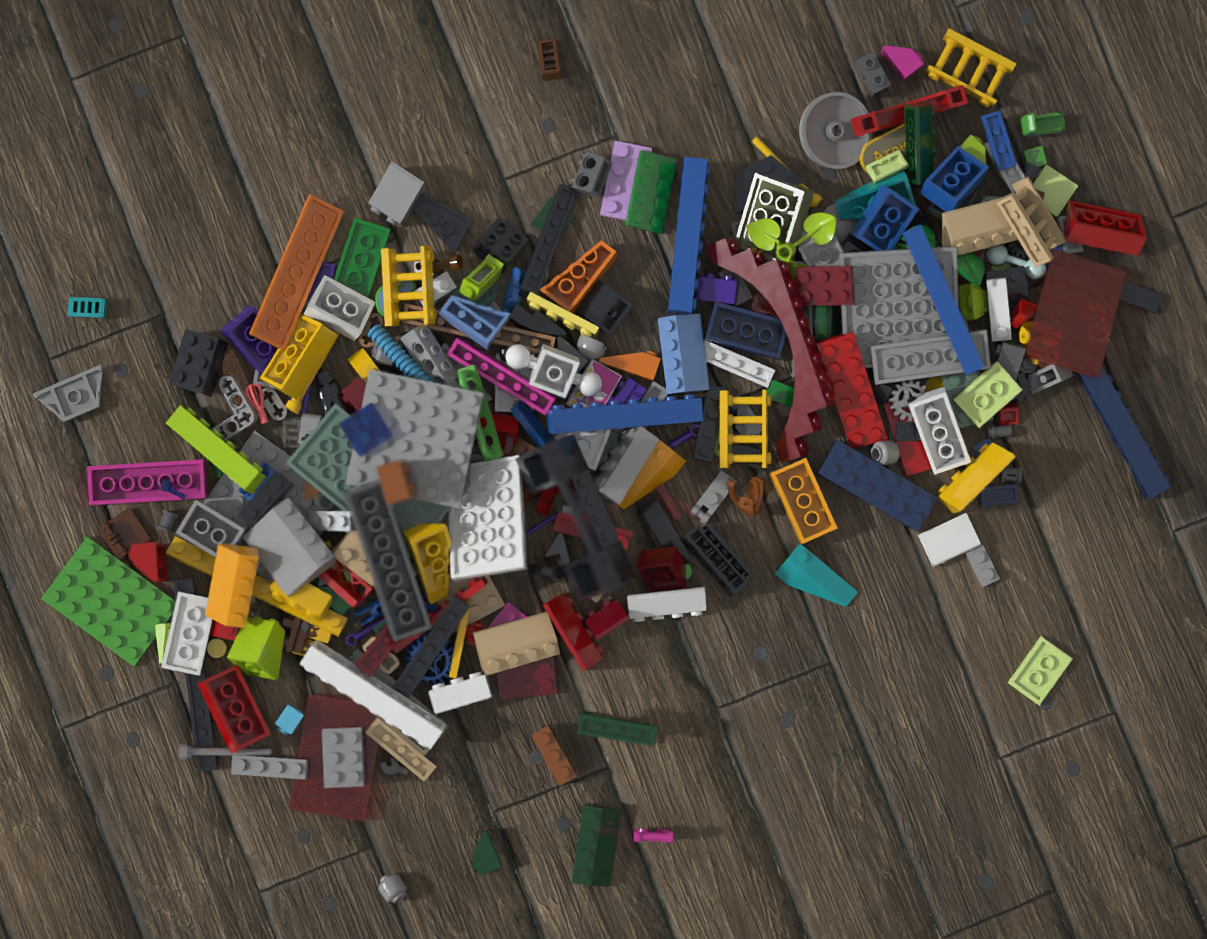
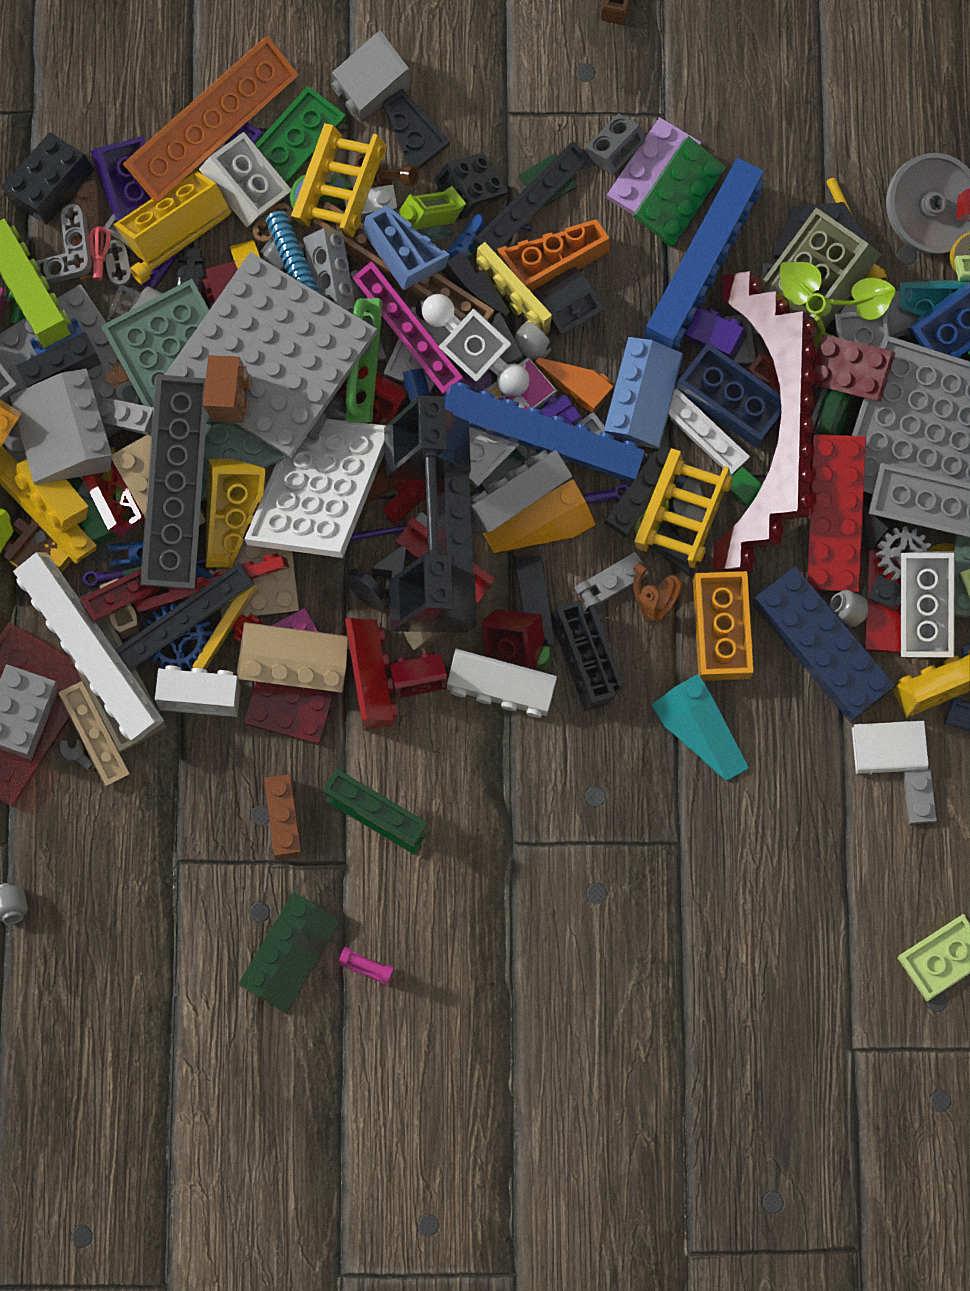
camera: 20 degrees right, 10 degrees down
(365, 429) = (215, 318): clear blue tile -> none
(485, 856) = (143, 908): dark green slope -> none
(669, 502) = (554, 565): clear red tile -> none

